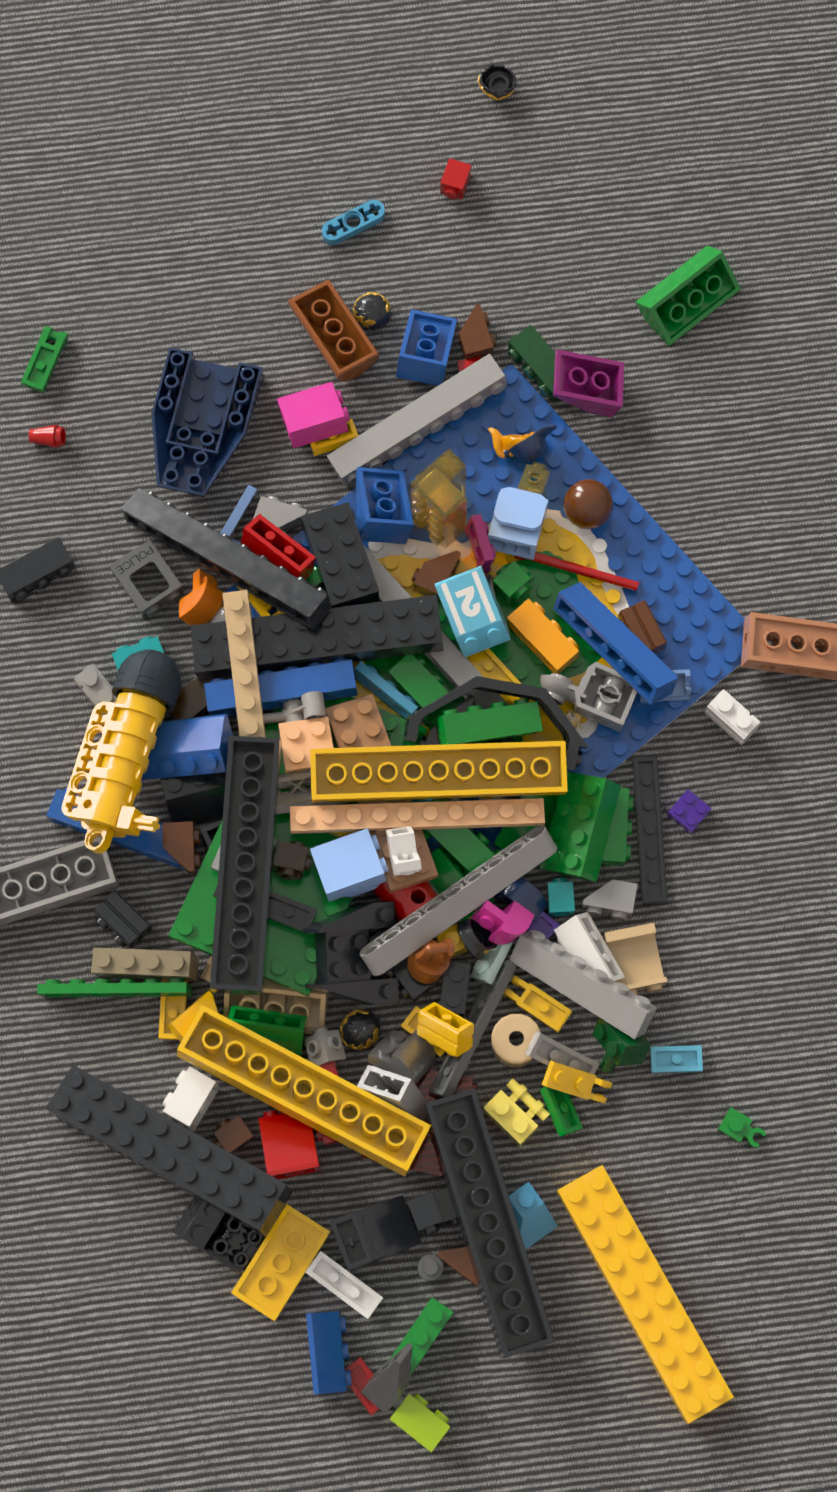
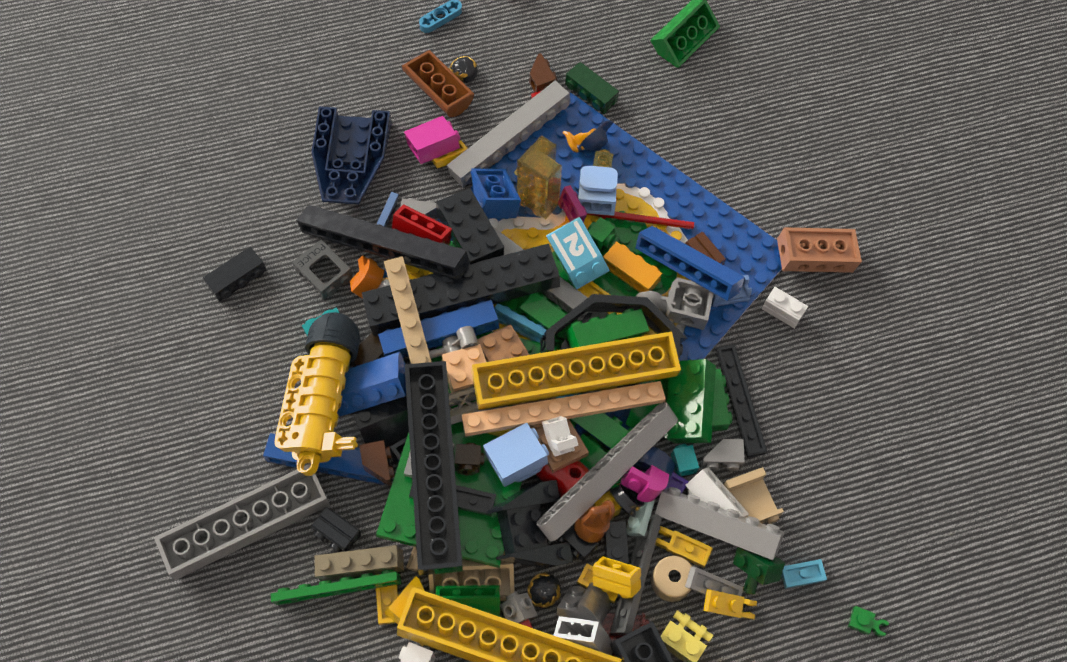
camera: 15 degrees left, 10 degrees down
(44, 359) = (226, 129): green plate -> none
(49, 436) = (237, 180): red cone -> none
(95, 686) = (289, 349): light grey brick -> none
(426, 348) = (506, 88): blue slope -> none
(434, 572) = (539, 232): reddish brown slope -> none
(561, 1111) = (721, 631): green plate -> none
(588, 504) = (646, 172): reddish brown piece -> none
(589, 382) = (630, 92): magenta slope -> none
(689, 811) = (768, 381): dark purple piece -> none

